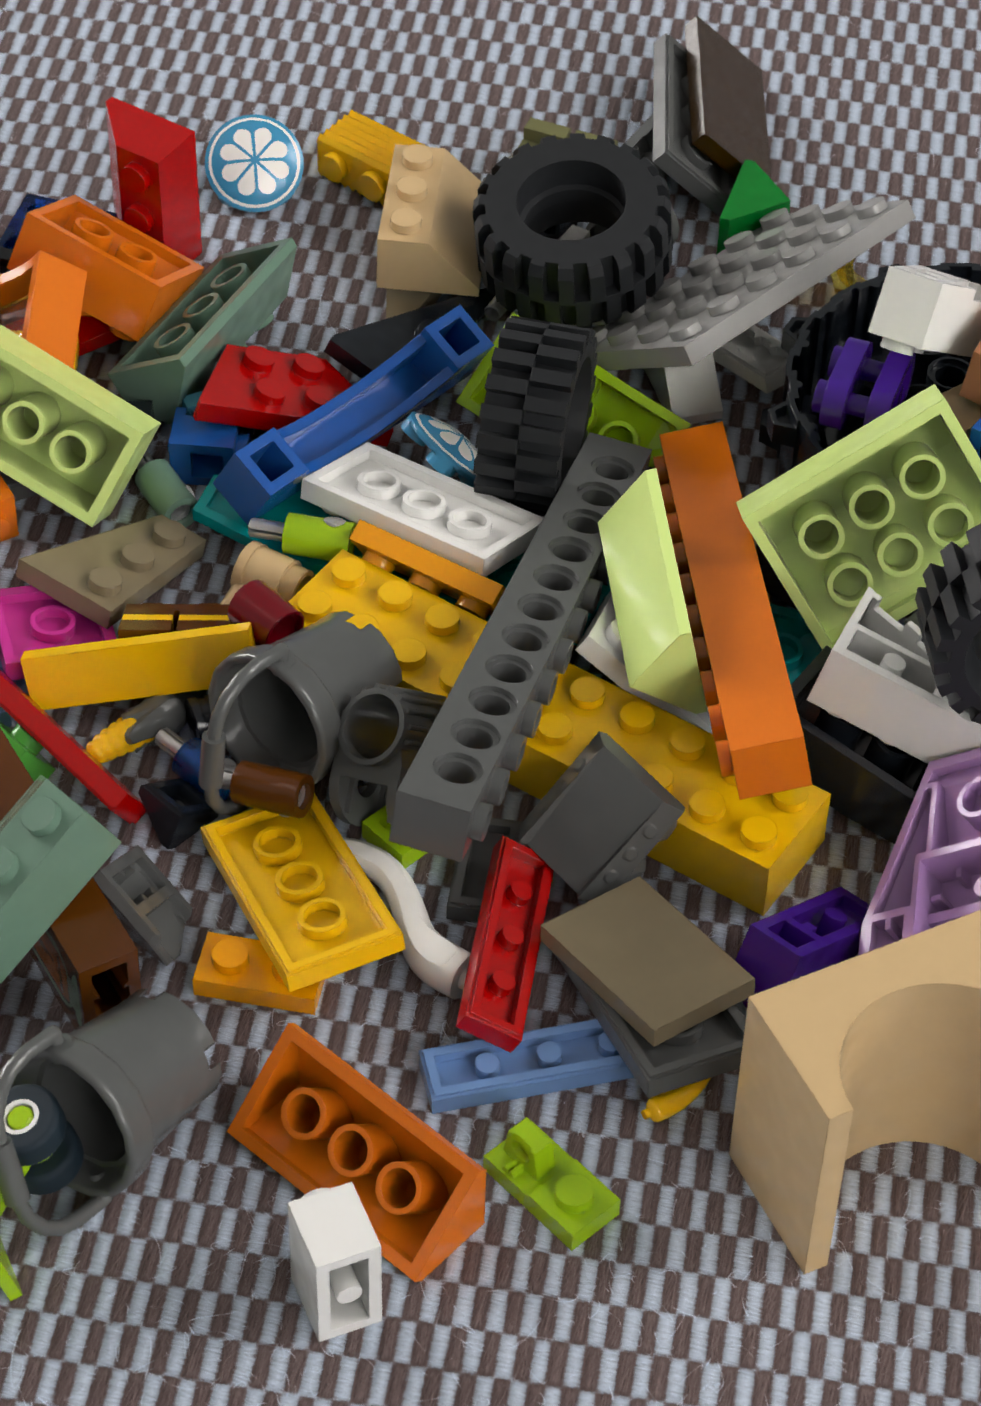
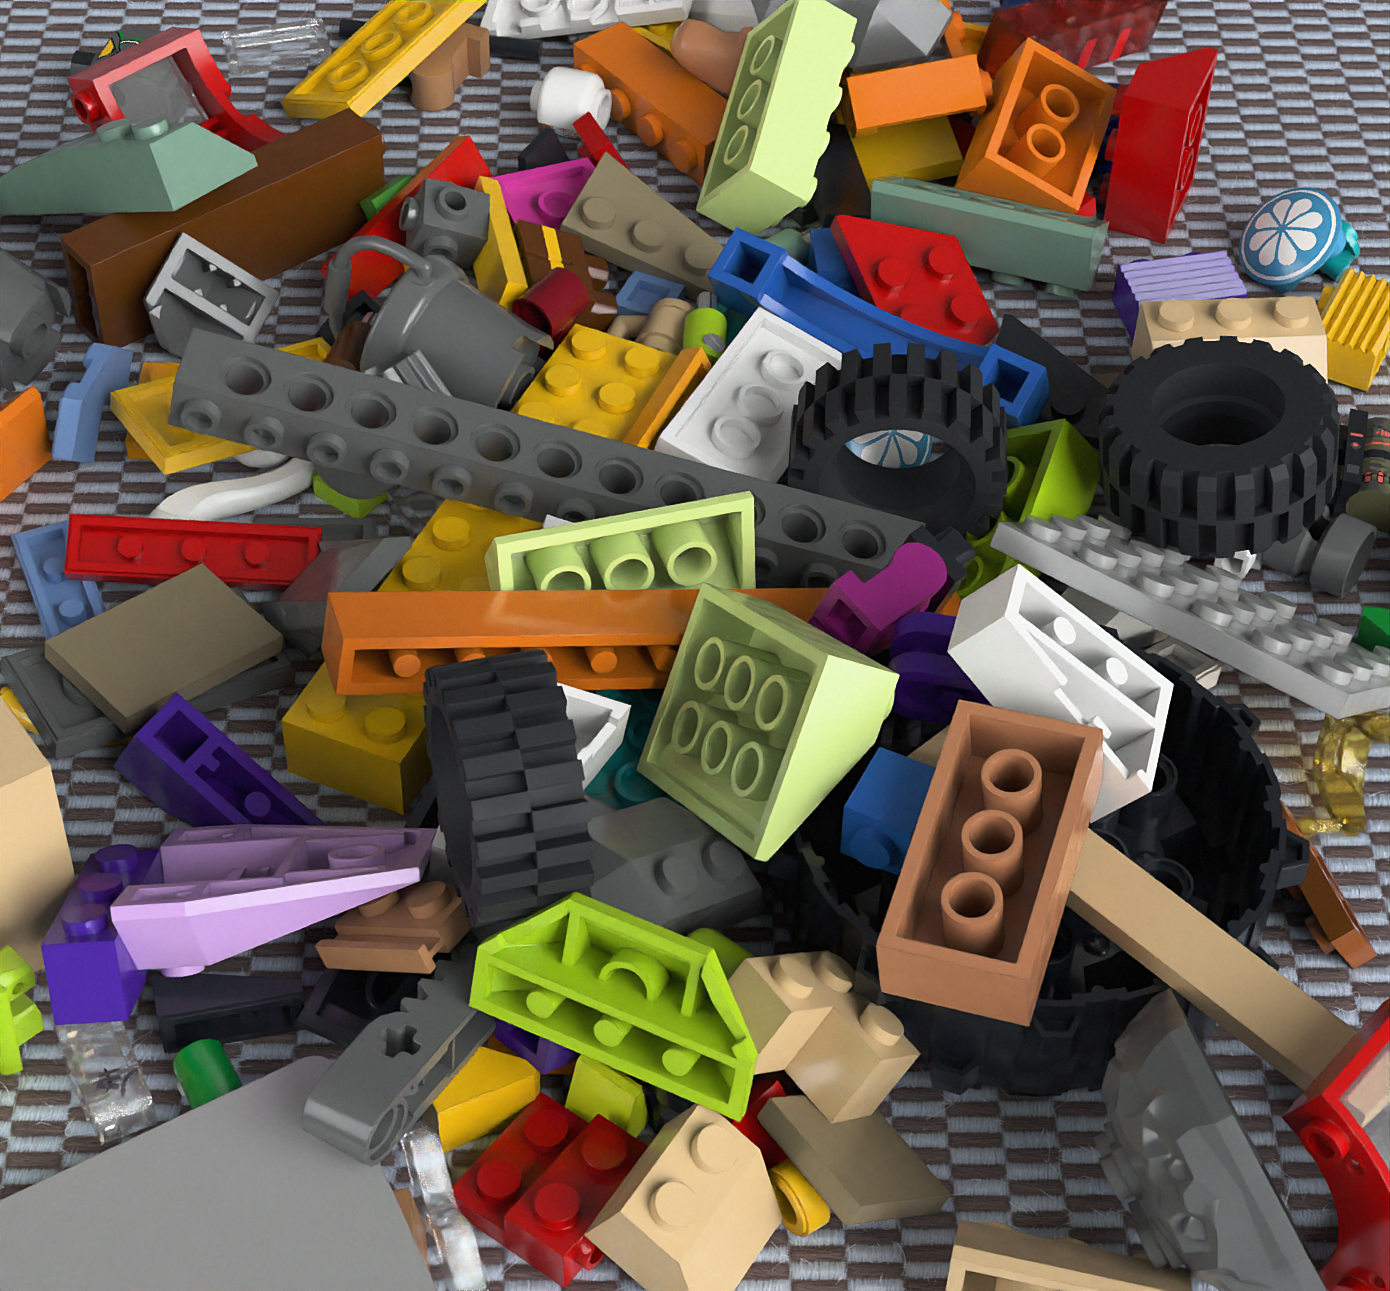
camera: 80 degrees right, 0 degrees up
(94, 691) = (446, 221): none -> dark grey brick
(193, 585) = (643, 291): none -> medium blue tile
(241, 995) = (83, 402): none -> medium blue tile
(312, 230) = (1179, 278): none -> brick
(755, 423) = (915, 579): none -> magenta hips

